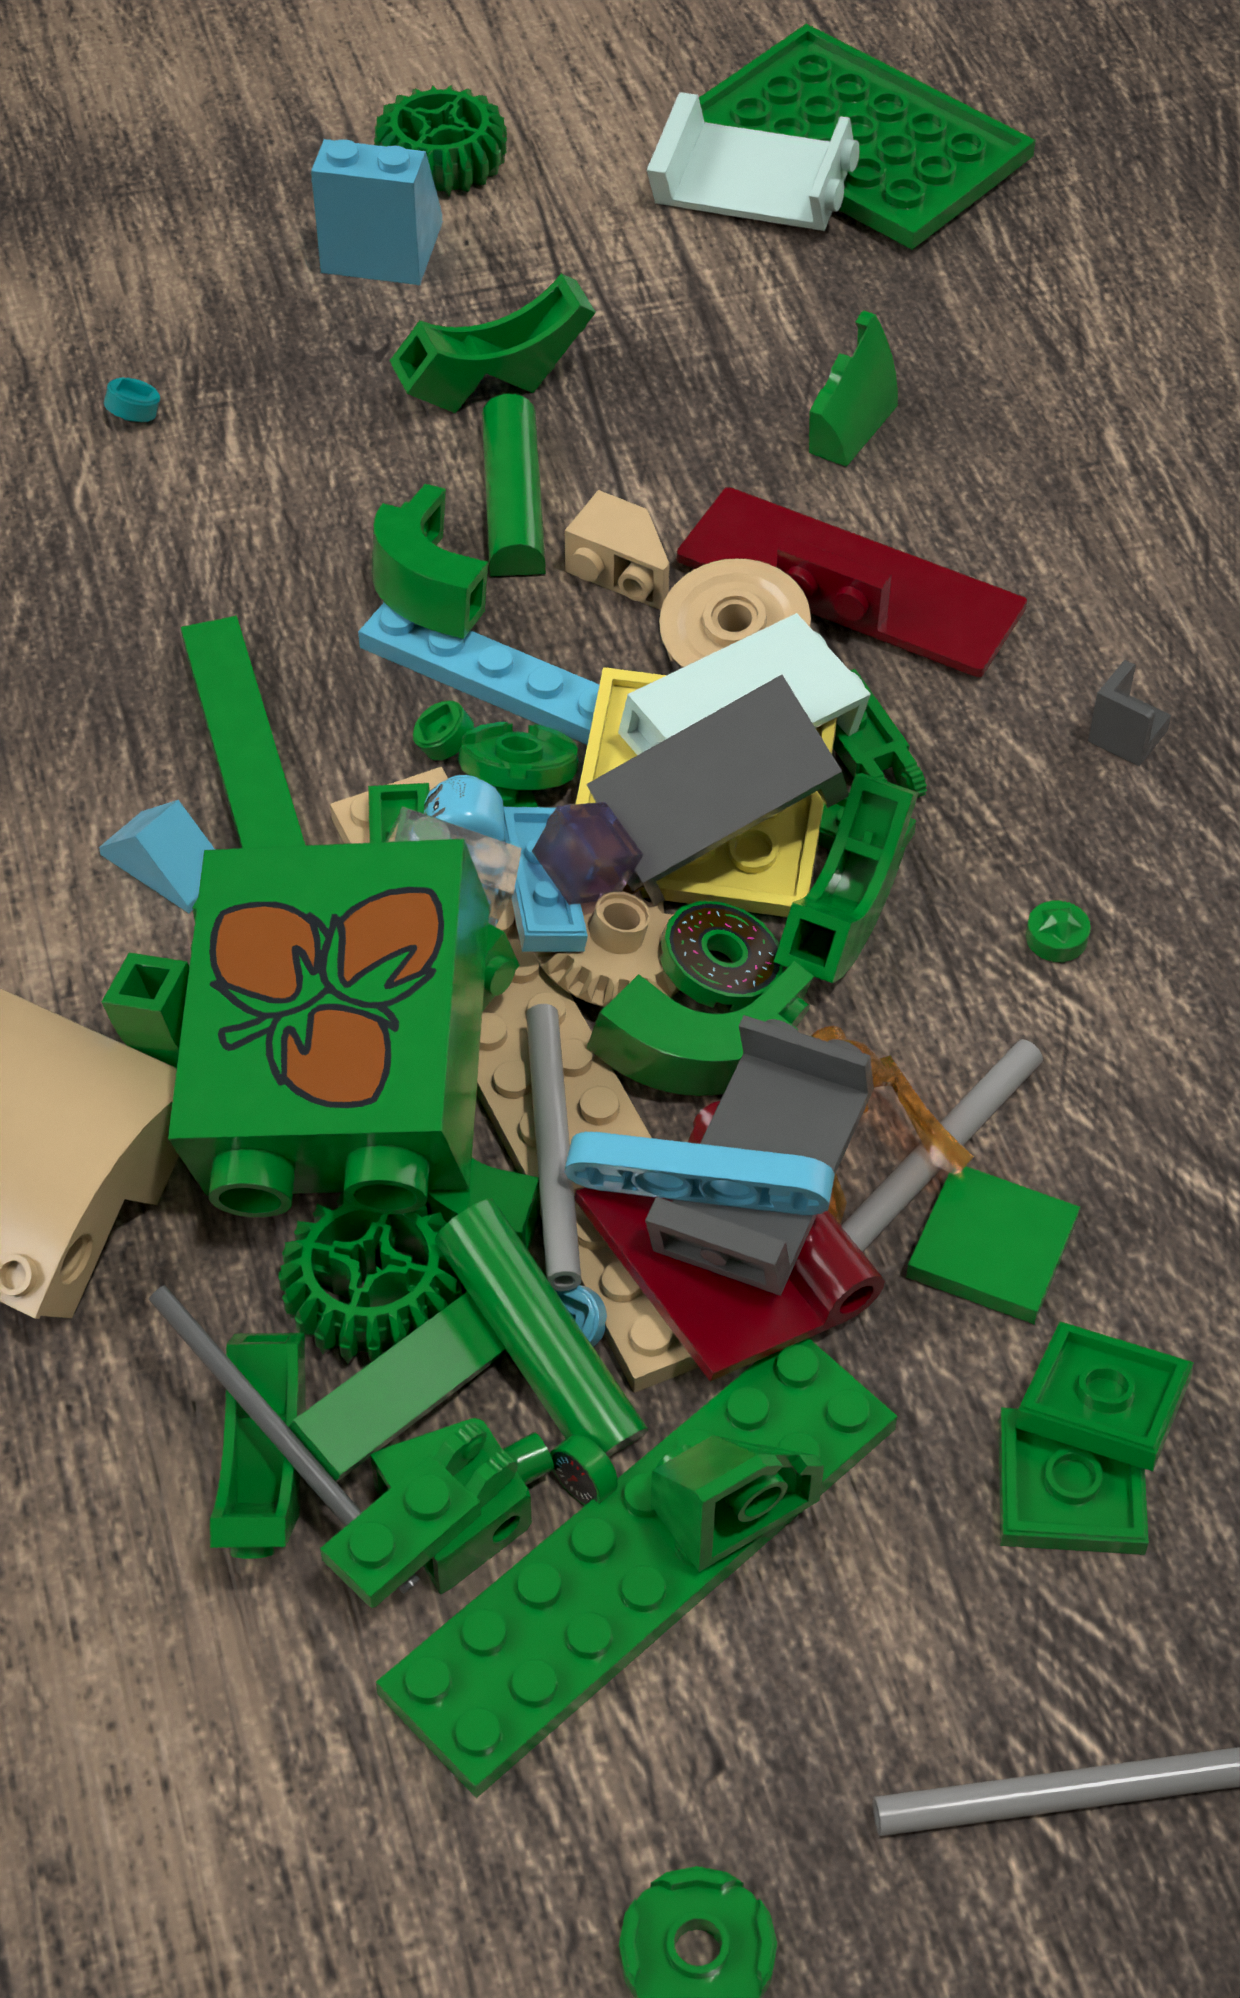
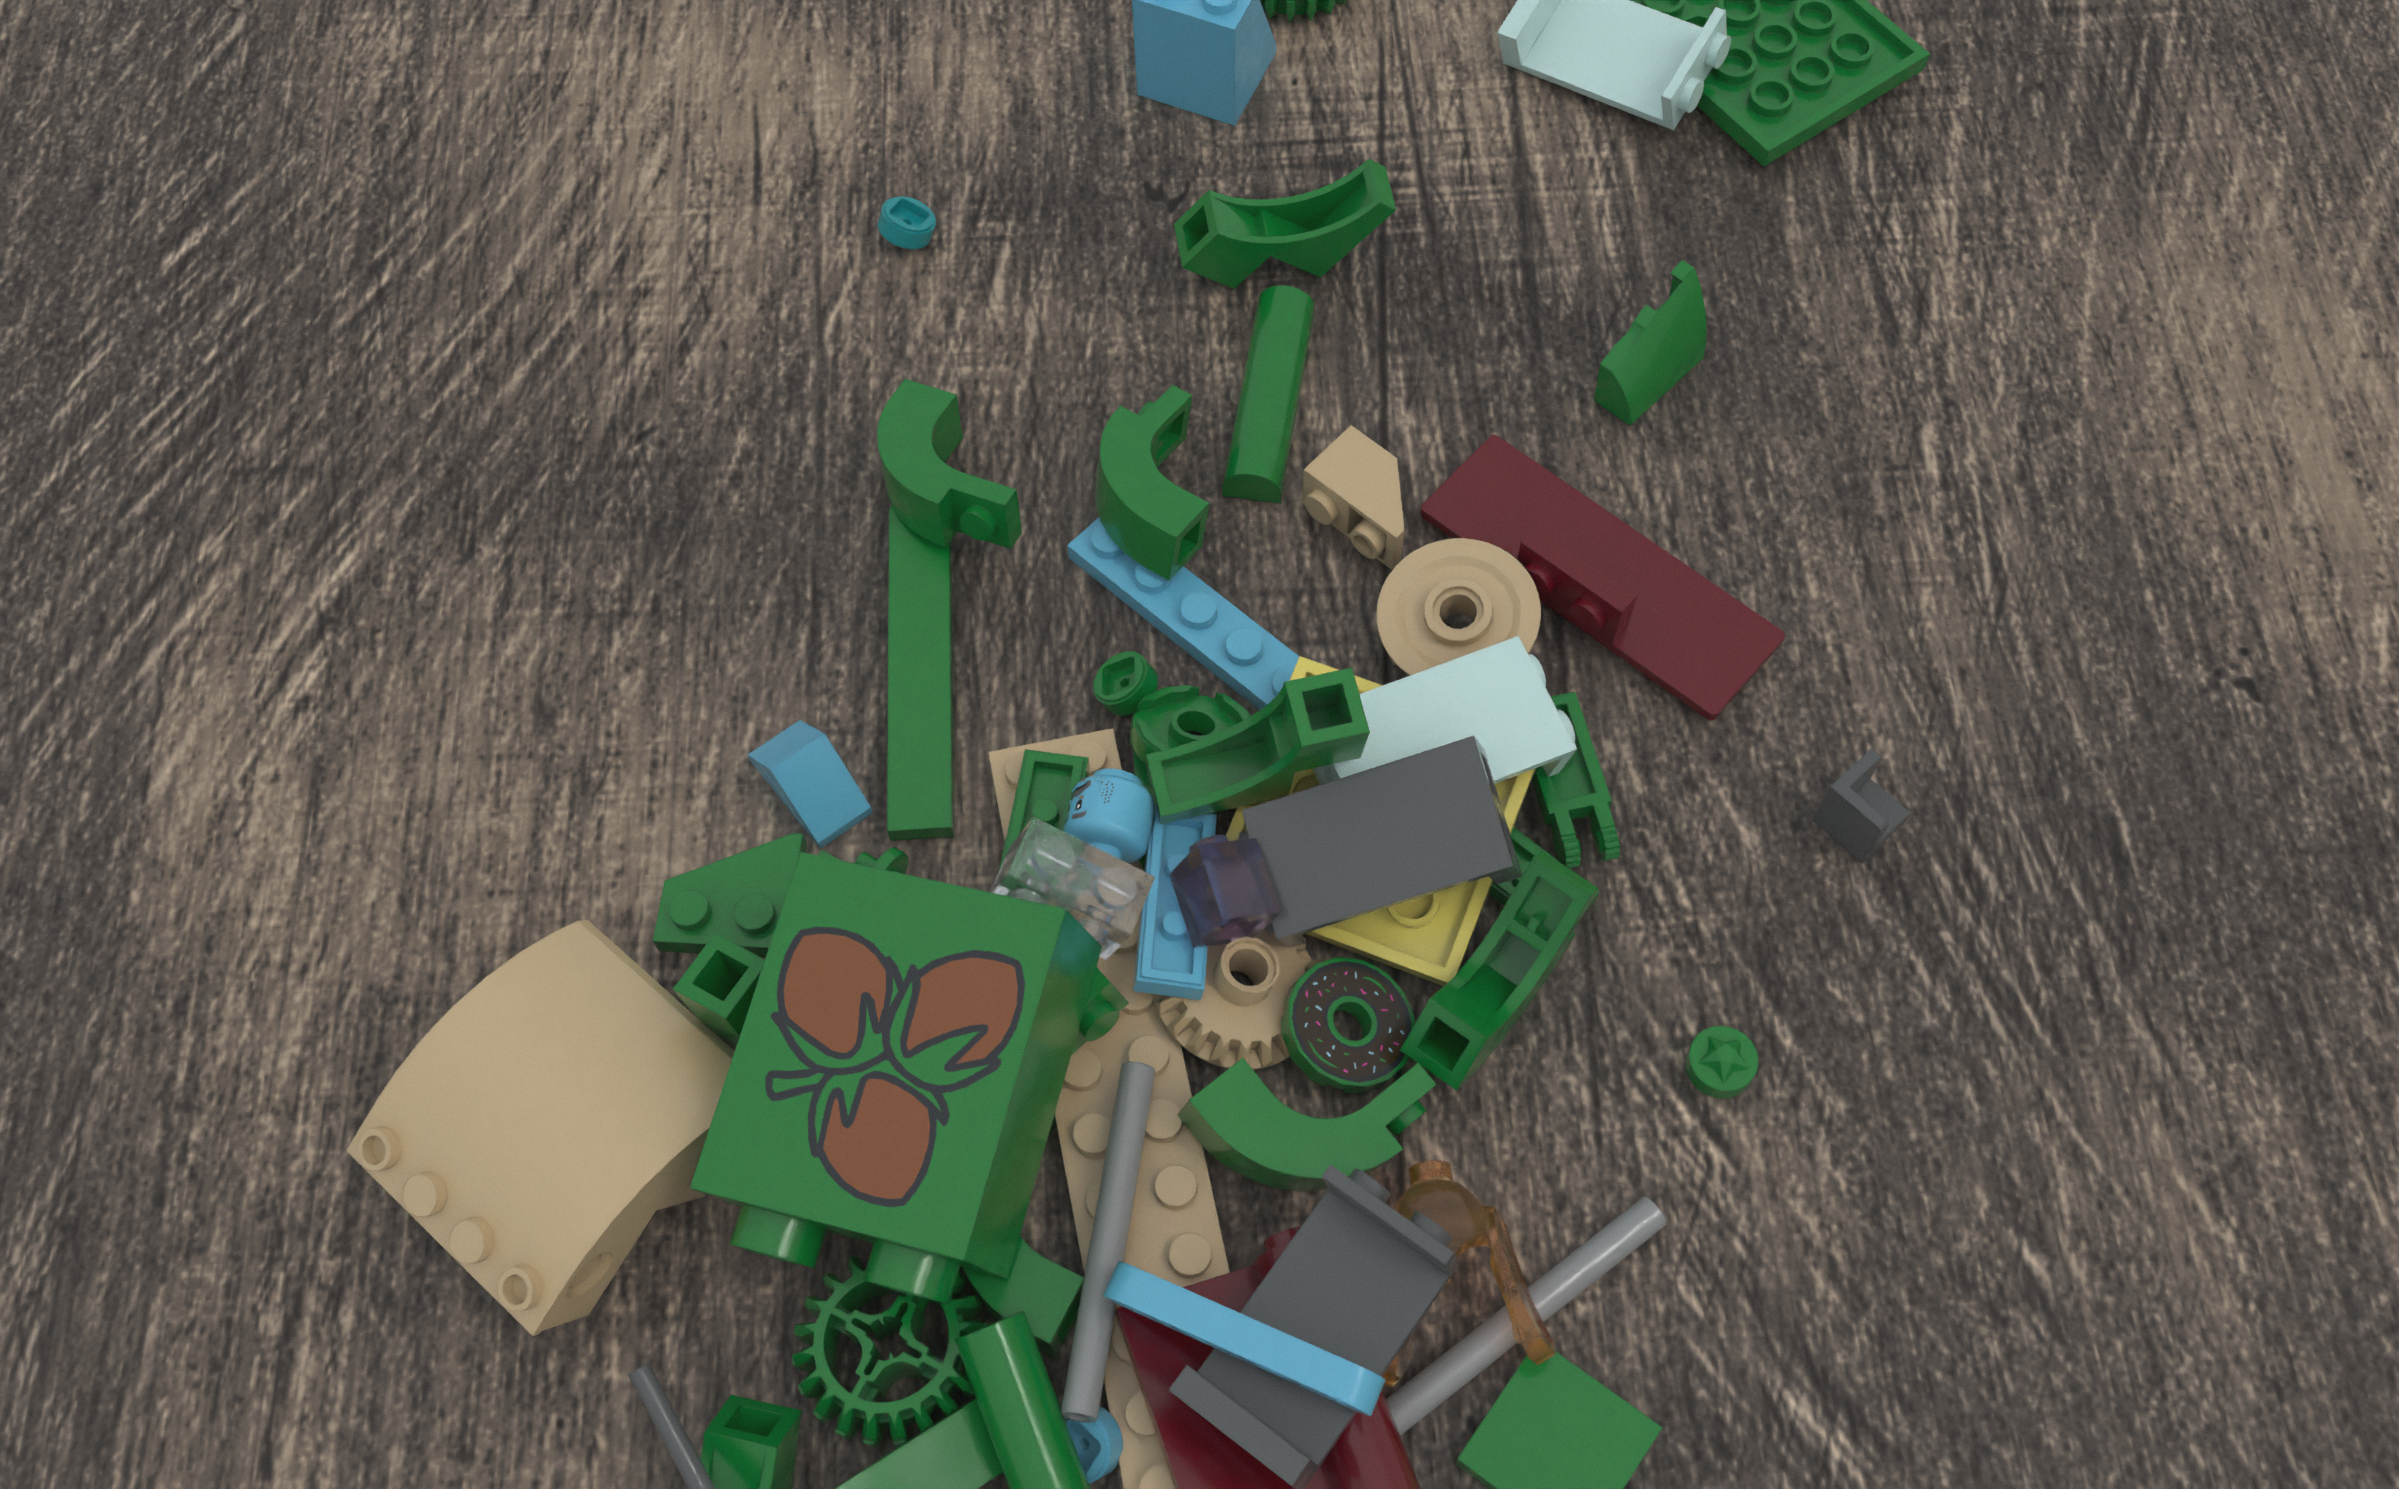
camera: 15 degrees right, 10 degrees up
(88, 967) = (729, 898): none -> green wing
(223, 601) = (933, 499): none -> green arch
(635, 691) = (1255, 761): none -> green arch

